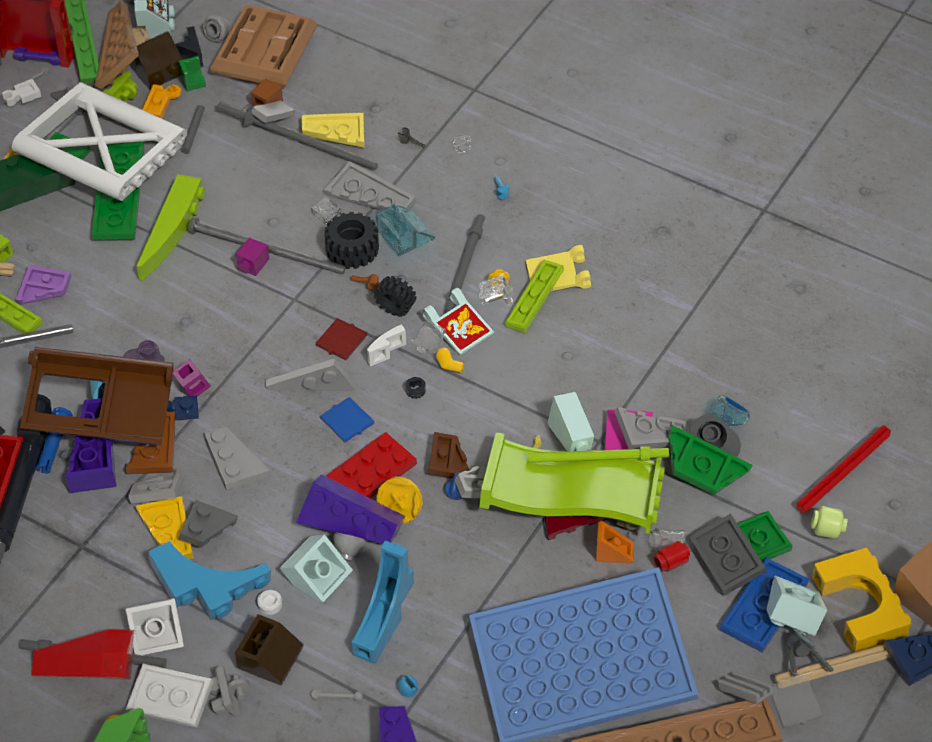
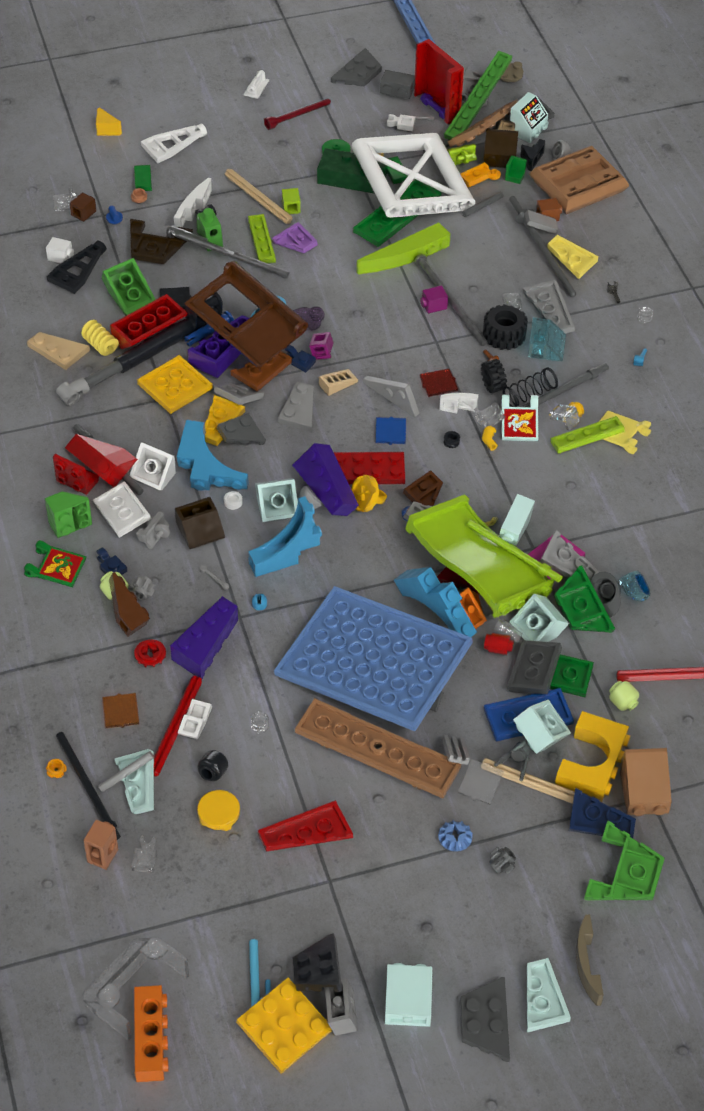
camera: 40 degrees right, 0 degrees up
(80, 523) = (174, 384): none -> yellow plate
(80, 697) = (74, 475): none -> red bracket
(243, 418) = (329, 384): none -> tan slope
(443, 271) = (516, 403): none -> black piece
(586, 551) = (439, 597): none -> dark azure arch
(683, 507) = (539, 620): none -> light aqua slope

